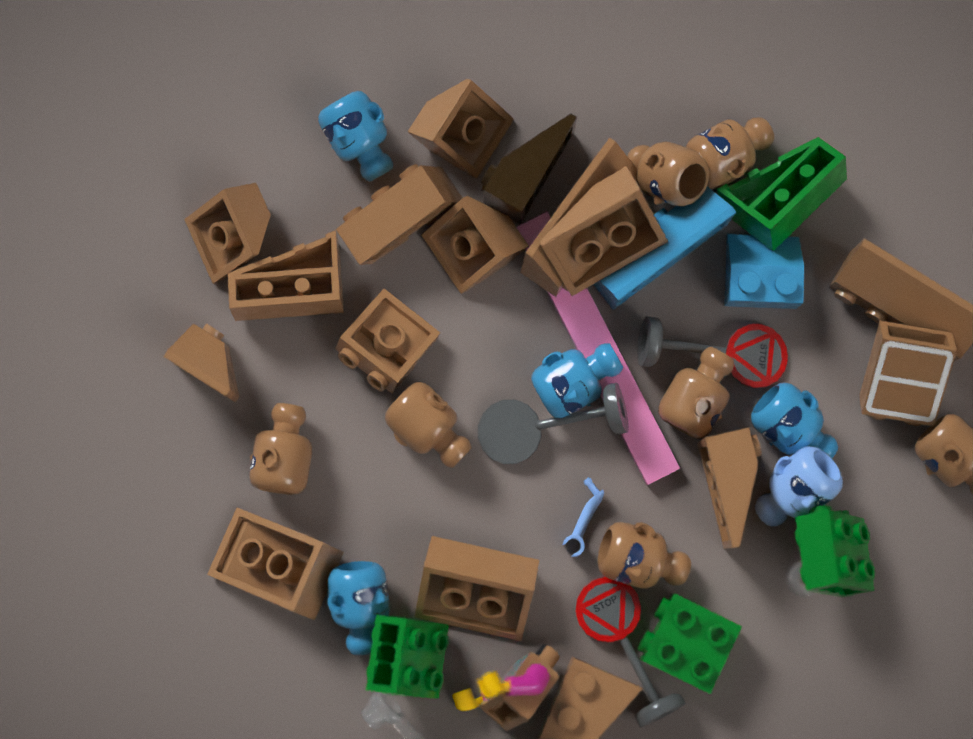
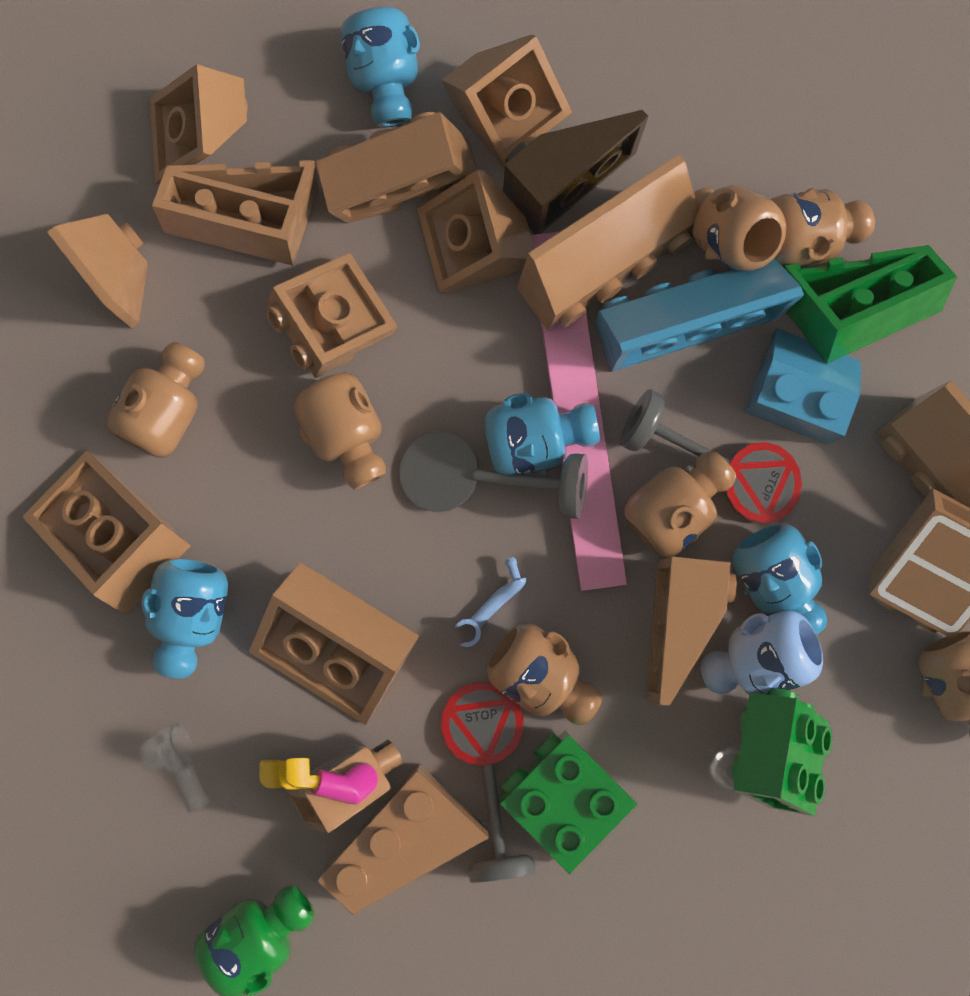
camera: 15 degrees right, 0 degrees up
(407, 657) = (214, 699): green brick -> none
(603, 233) = (632, 264): medium nougat slope -> none

